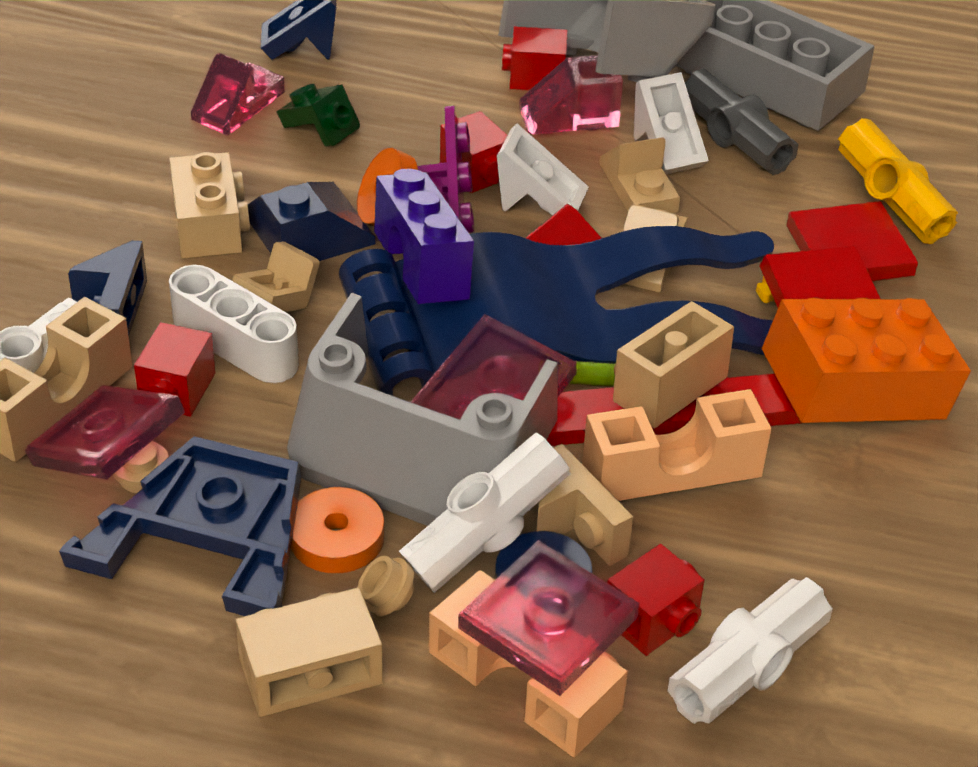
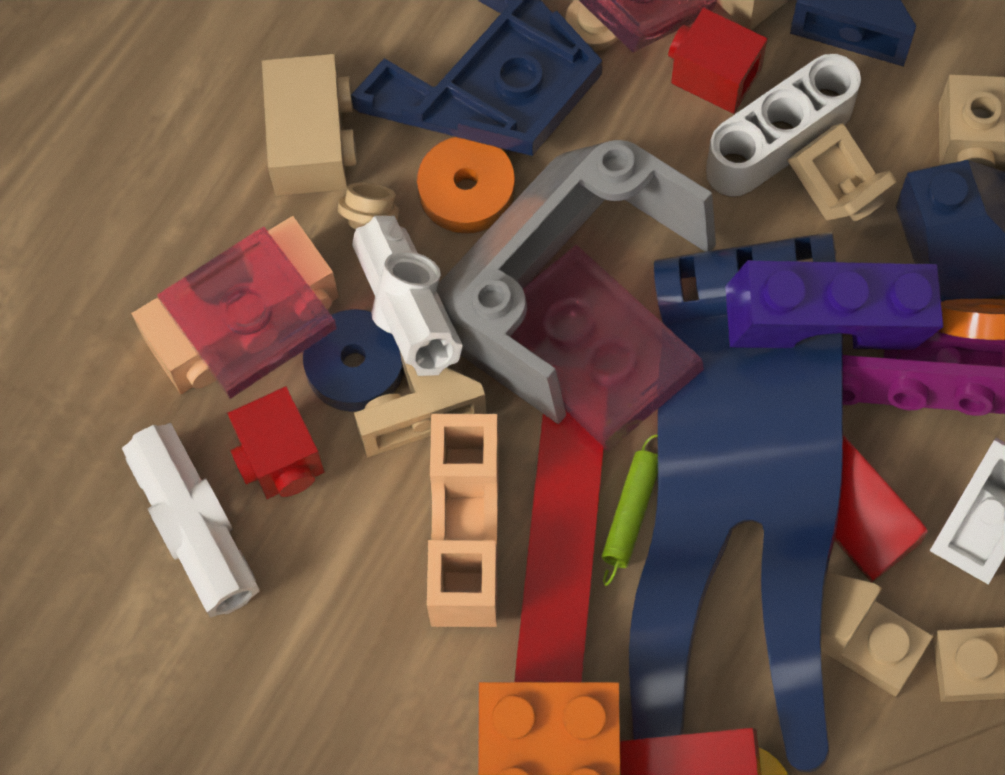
camera: 110 degrees right, 25 degrees up
(673, 363) = (573, 541): tan brick -> none

